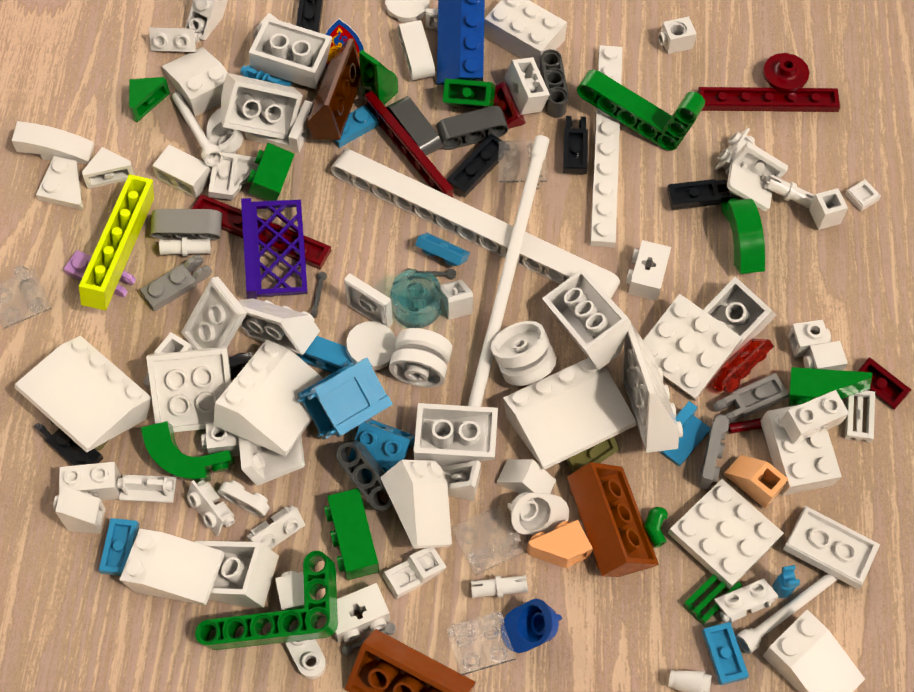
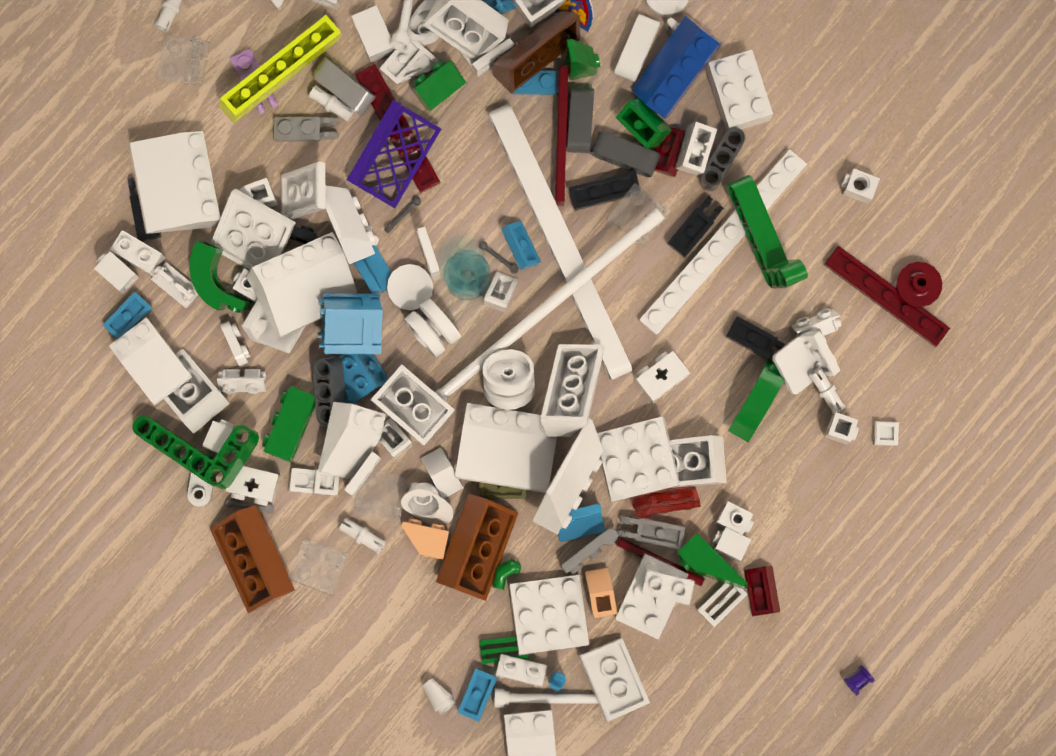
camera: 35 degrees right, 20 degrees up
(202, 498) = (207, 339): white hinge -> none
(456, 528) = (362, 474): none -> white tile
(531, 625) = (360, 580): blue piece -> none

